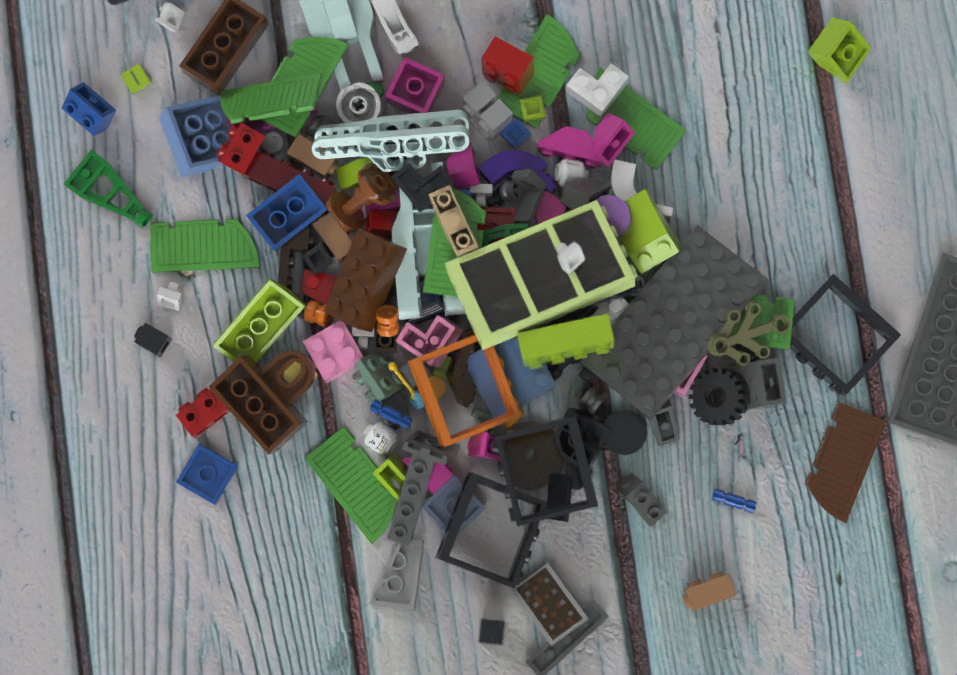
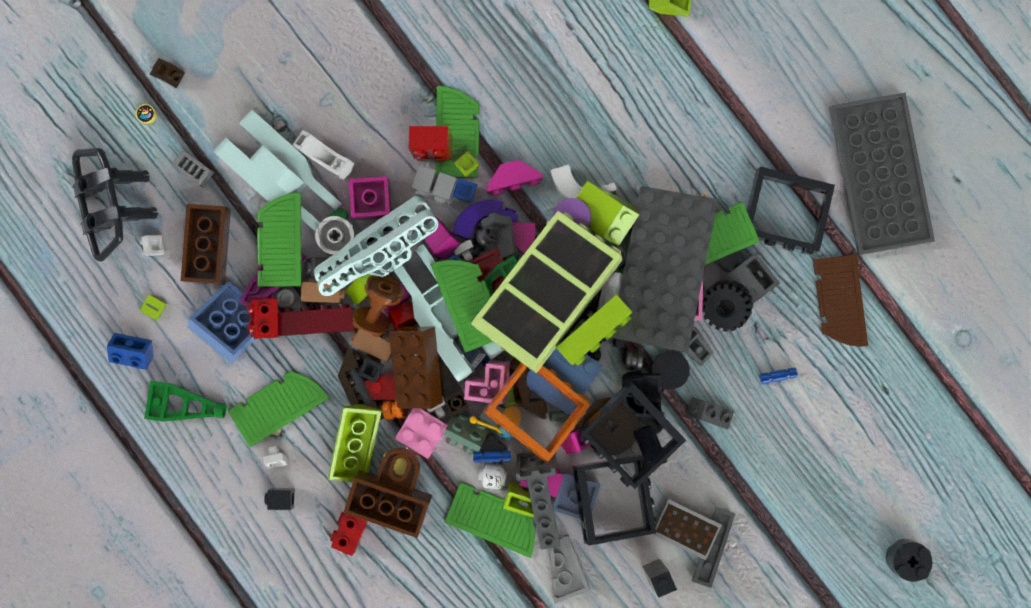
camera: 35 degrees left, 5 degrees up
(207, 474) = (379, 575): blue tile -> none
(271, 98) = (265, 267): bright green piece -> none
(286, 212) = (326, 348): blue slope -> none
(387, 321) = (450, 388): orange wheel -> none
(419, 189) = (421, 276): black plate -> none
(452, 221) = (459, 287): tan slope -> none
(569, 170) = (523, 198): white head -> none
(570, 256) = (563, 267): white tile -> none
(583, 191) = (541, 208): dark grey slope -> none
(597, 94) = (508, 127): white brick -> none
(610, 138) = (539, 155): dark pink slope -> none
(653, 130) = (545, 131): bright green piece -> none
(709, 592) = (798, 454): medium nougat brick -> none
(744, 334) = (742, 227): olive plant -> none

